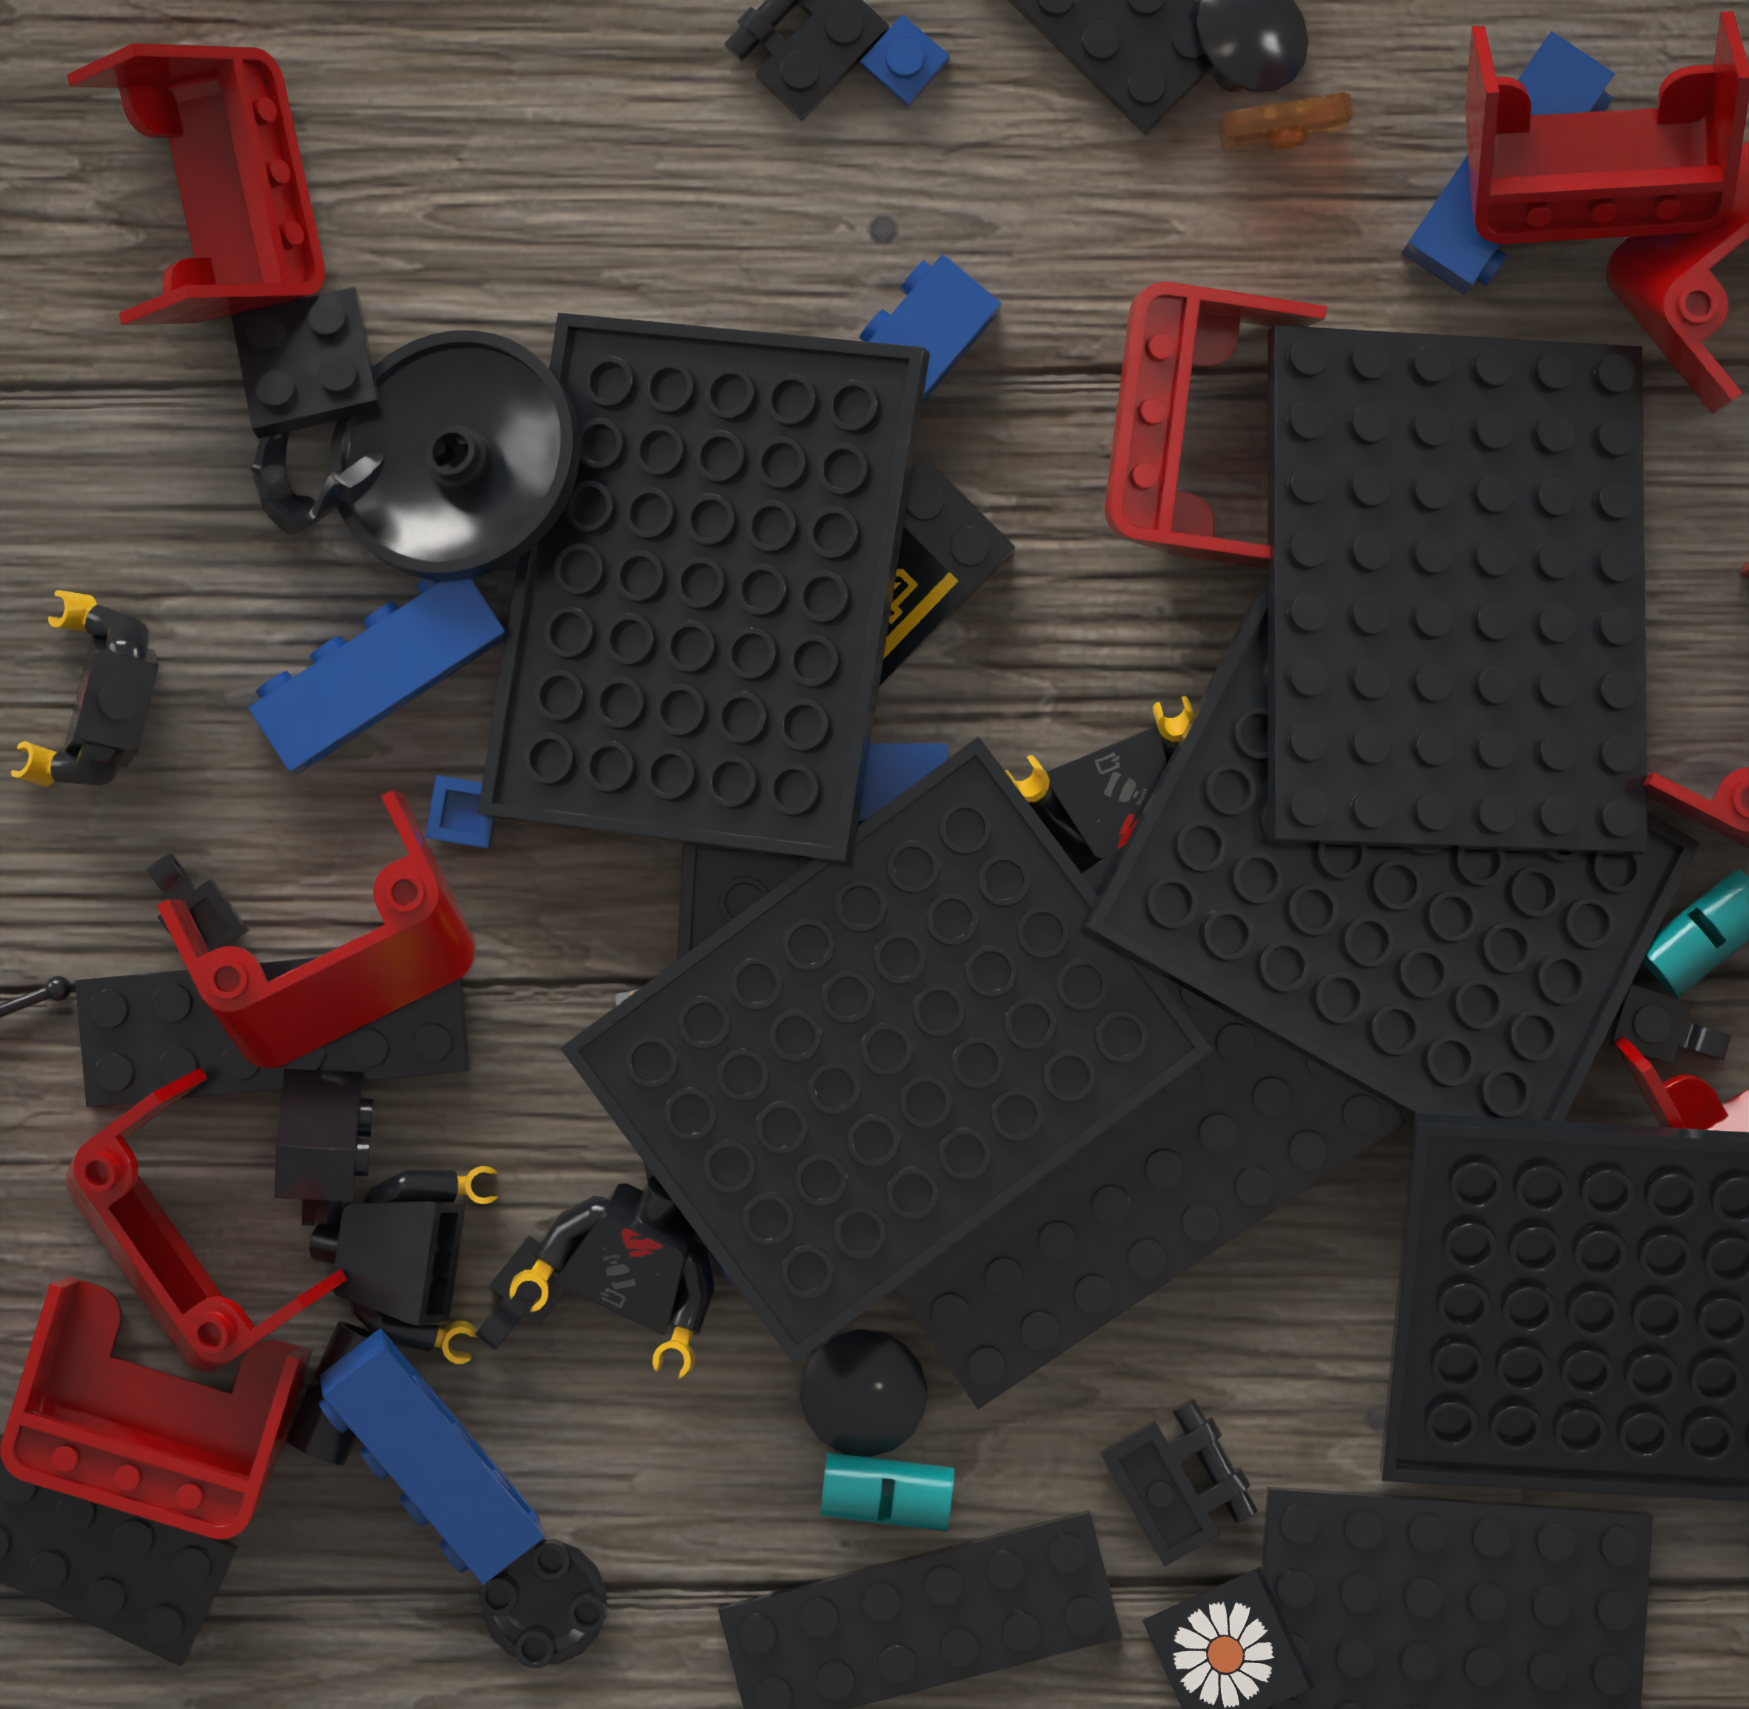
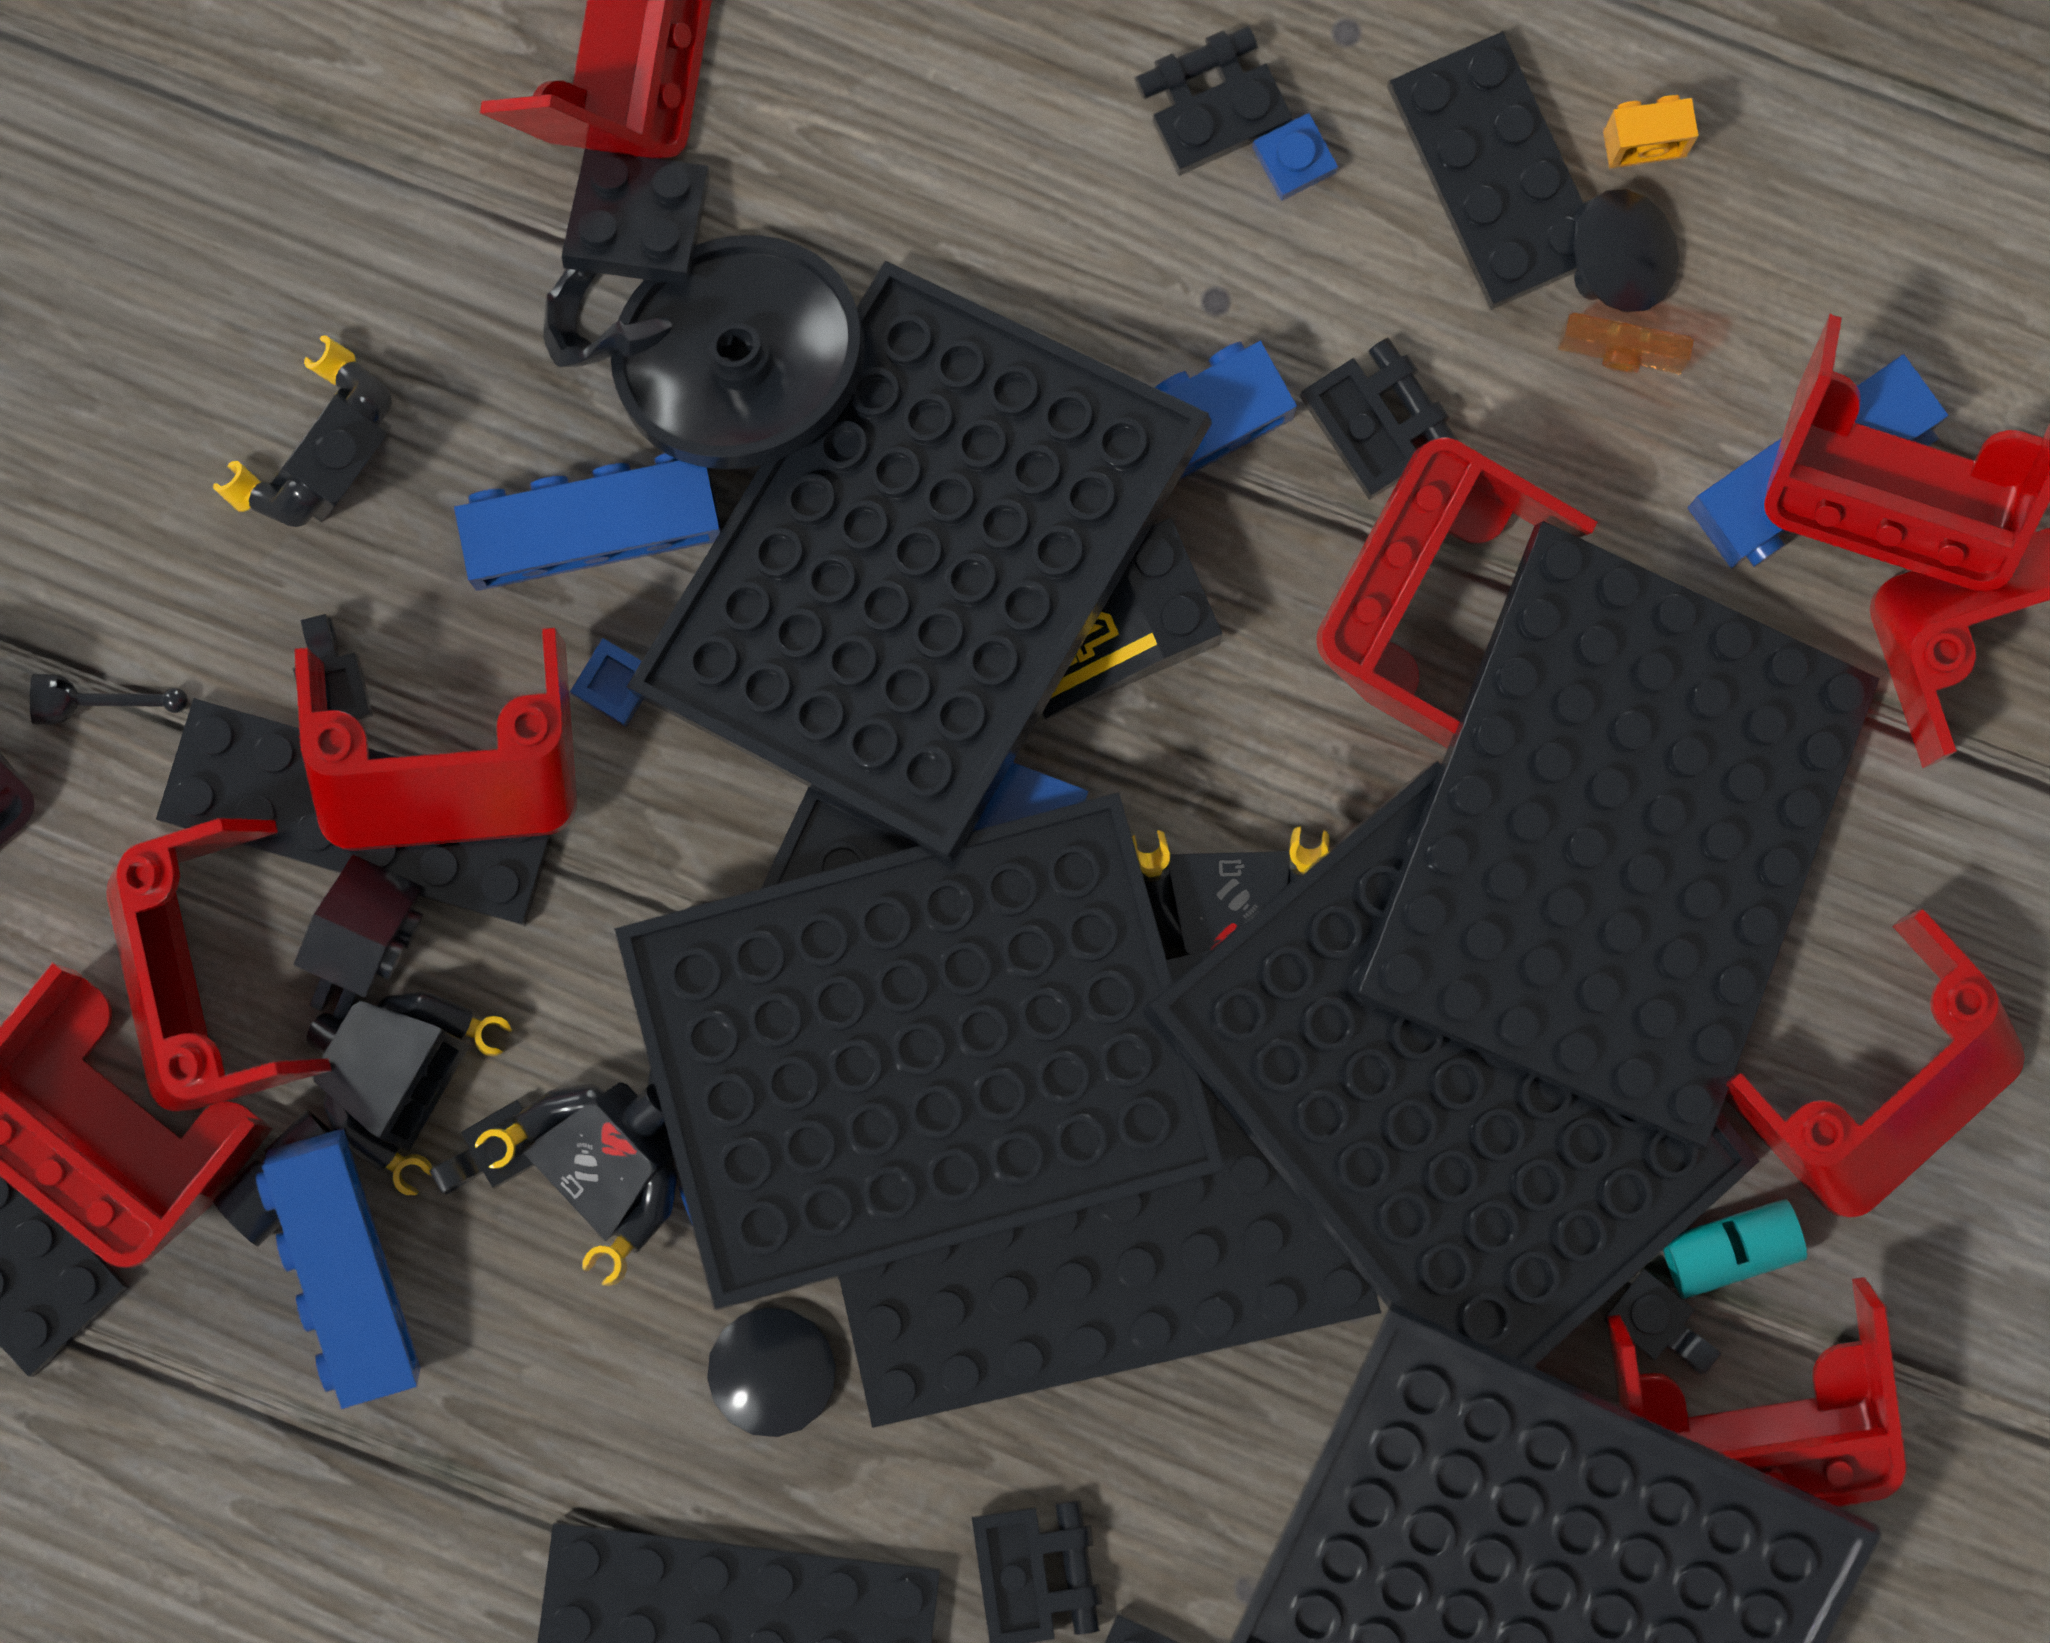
camera: 15 degrees right, 5 degrees down
(545, 1604) = (392, 1453): black dish -> none
(887, 1492) = (755, 1473): teal pin -> none
(1069, 296) = (1361, 424): none -> black plate

